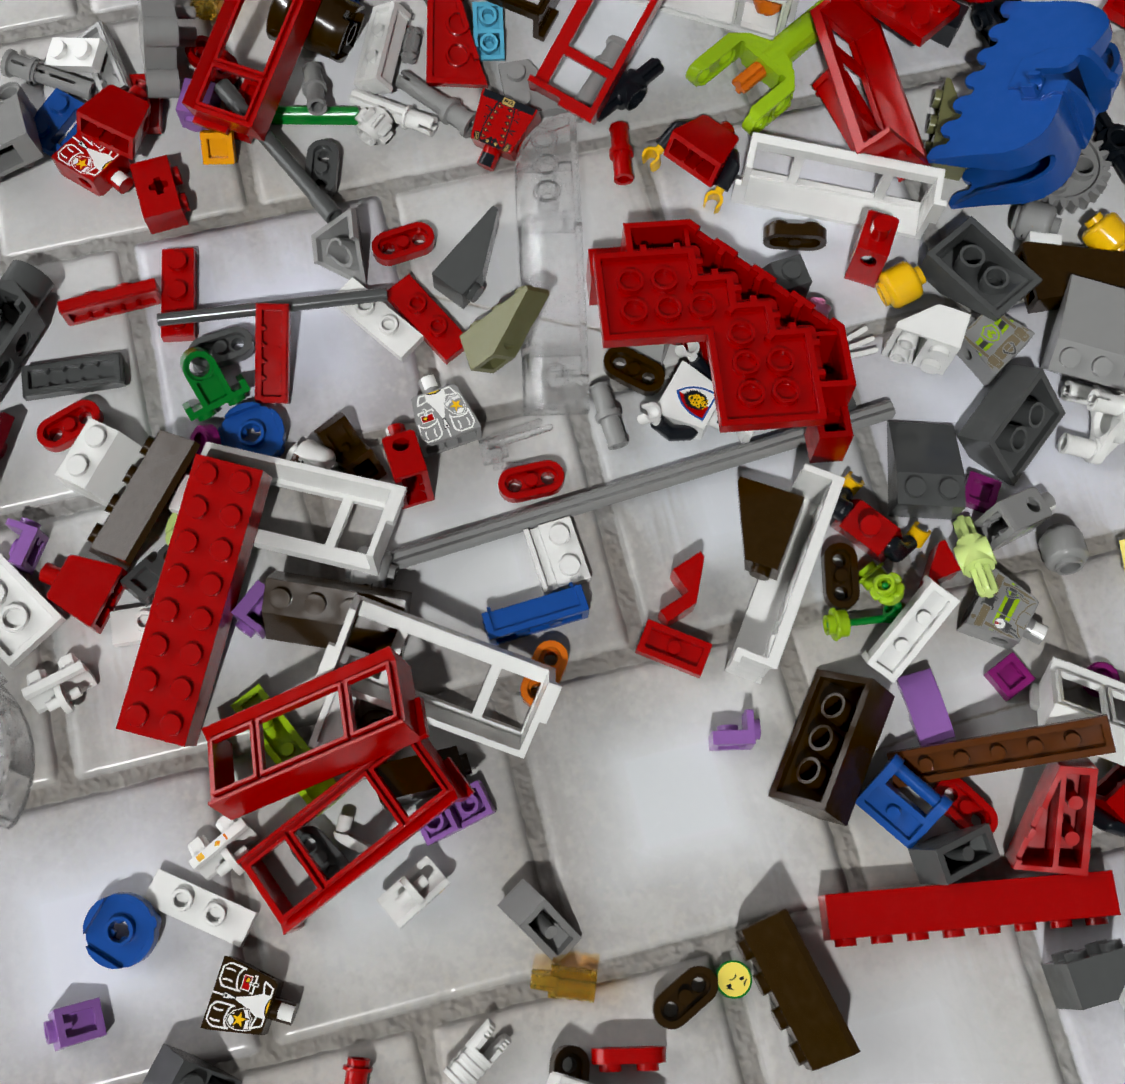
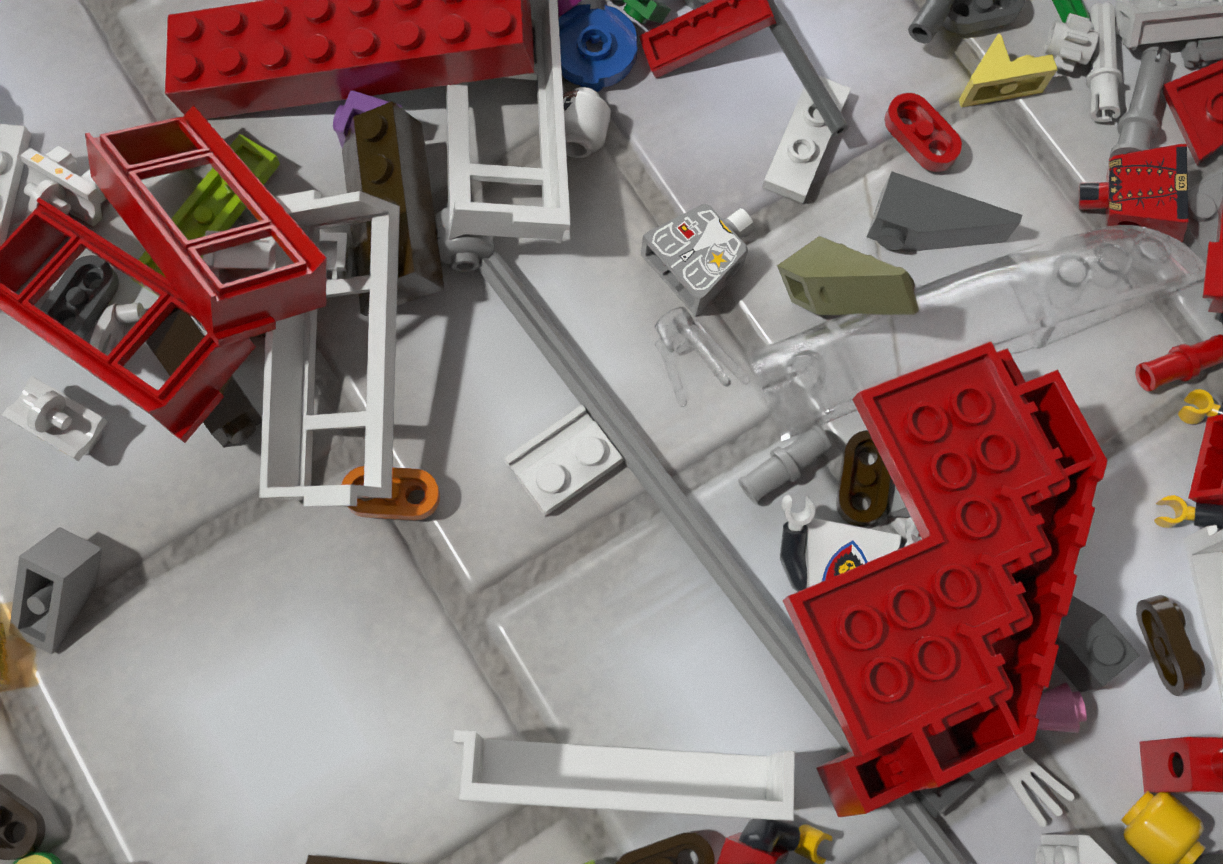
camera: 70 degrees right, 0 degrees up
(340, 247) = (887, 64): light grey slope -> none
(351, 453) = (609, 171): dark brown slope -> none
(380, 181) = (1001, 80): none -> light yellow slope
(407, 464) = (611, 228): red torso -> none
(426, 318) = (833, 192): red plate -> none
(459, 815) = (191, 461): medium lavender slope -> none
(529, 479) = (653, 395): red plate -> none
(535, 615) = (467, 454): blue container -> none
(673, 648) = (478, 655): red plate -> none
(687, 581) = (583, 645): red slope -> none
(730, 738) = (370, 773): medium lavender bracket -> none
(767, 526) = (697, 733): dark brown slope -> none

